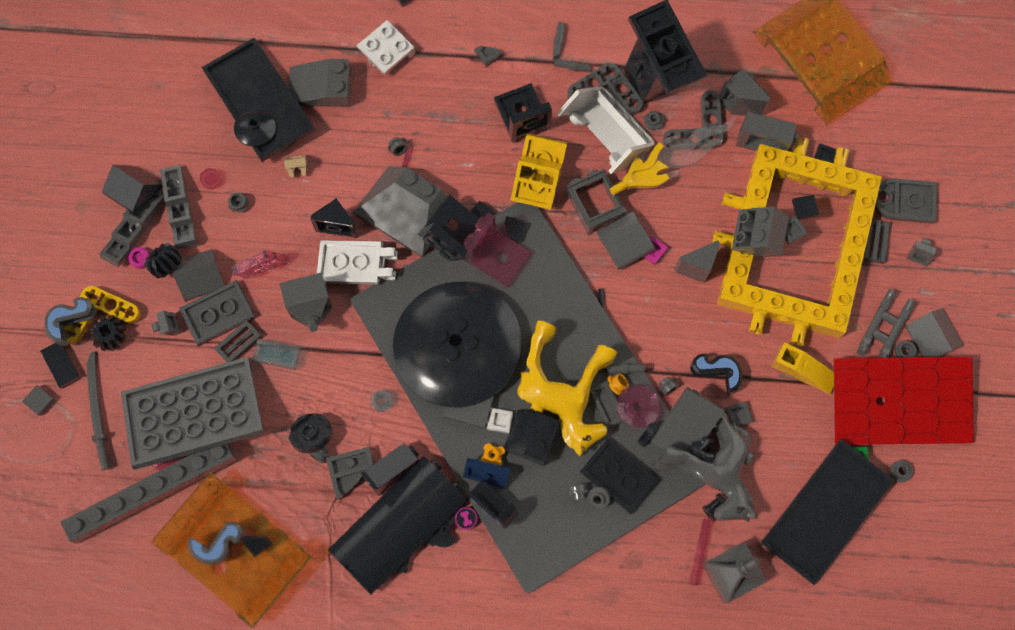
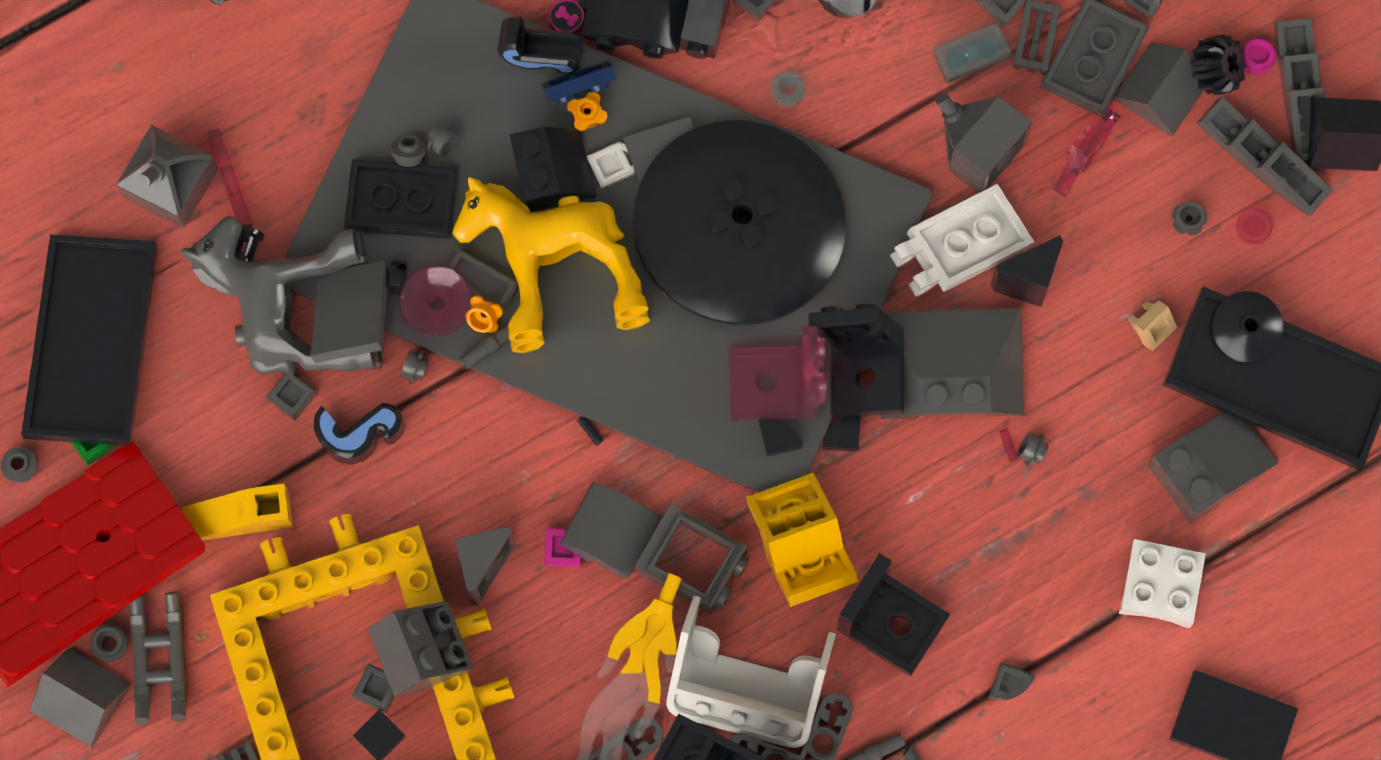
camera: 150 degrees right, 0 degrees up
(697, 449) = (314, 290): black piece -> none

